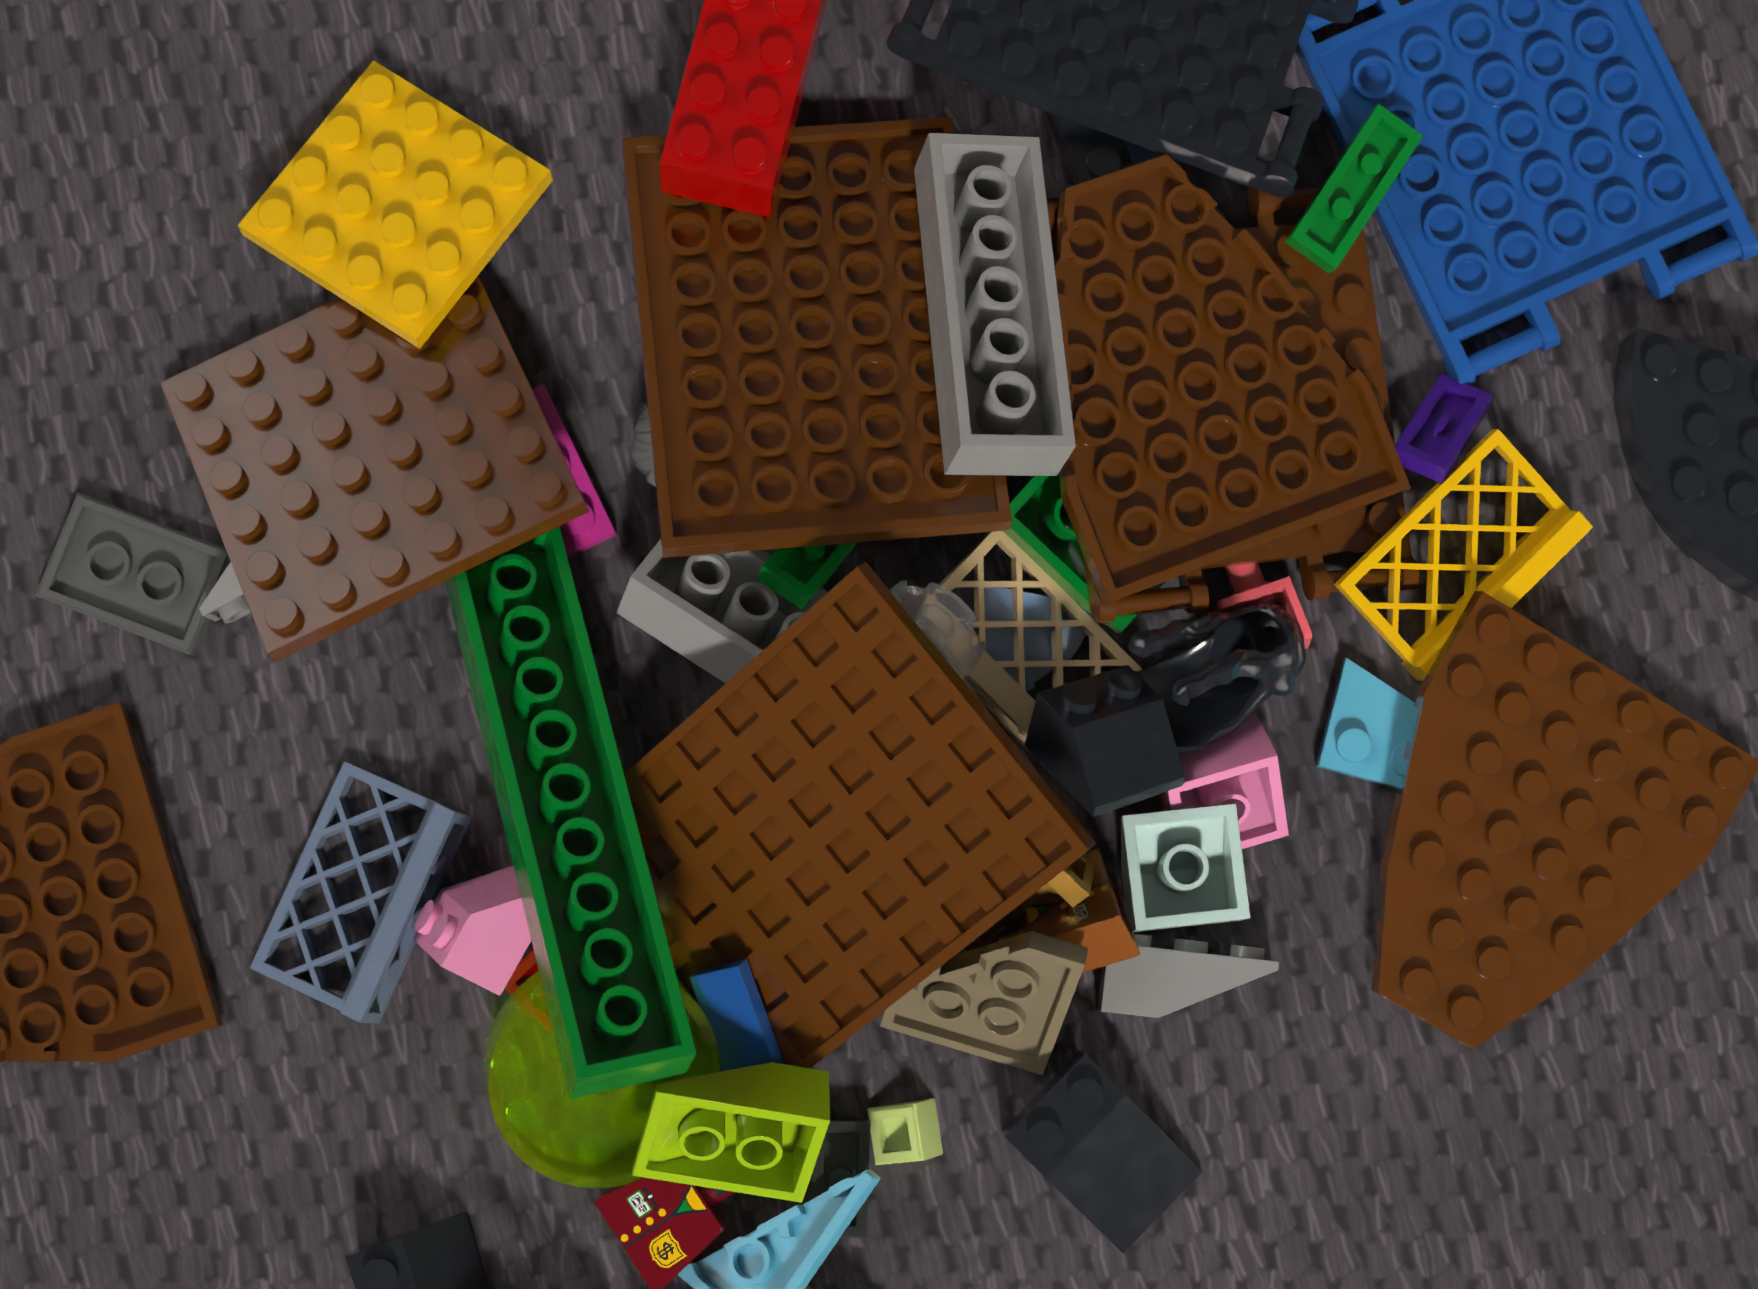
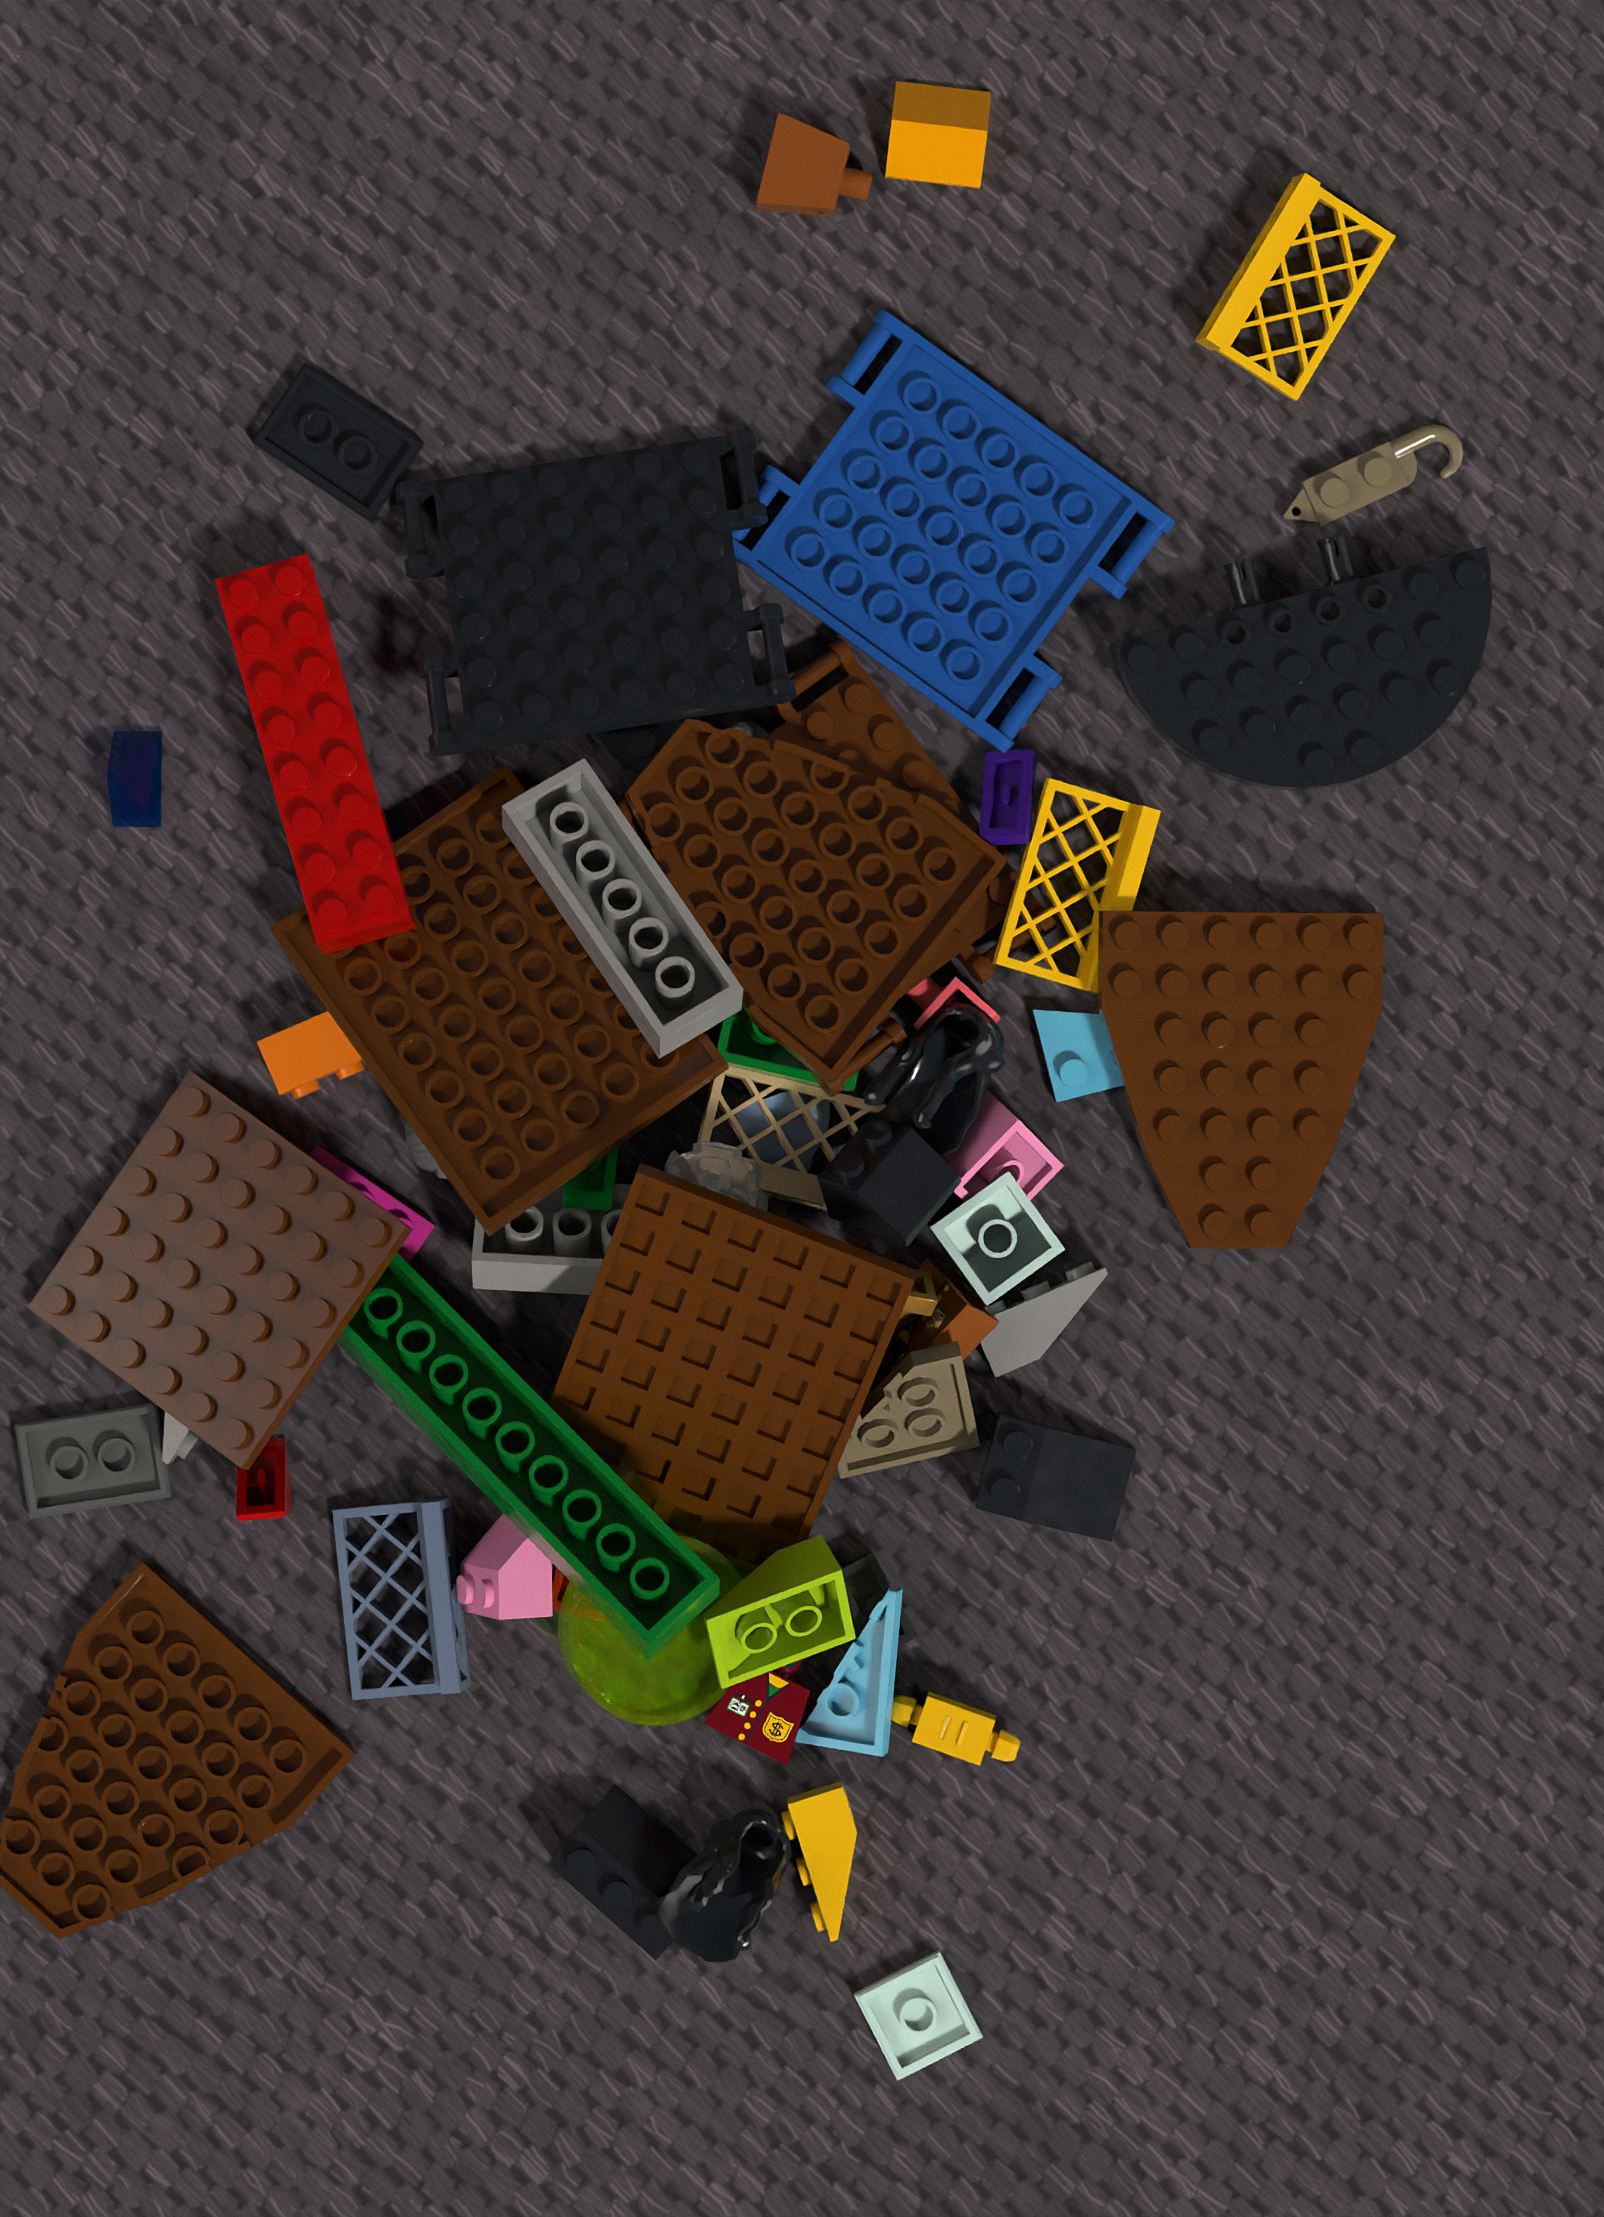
camera: 25 degrees left, 5 degrees up
(290, 692) = (265, 1487): none -> red slope
(396, 203) = (126, 1072): yellow plate -> none
(588, 289) = (309, 1053): none -> orange brick
(736, 1015) = (730, 1532): blue tile -> none
(905, 1132) = (903, 1544): yellowish green slope -> none
(1353, 189) = (841, 654): green plate -> none

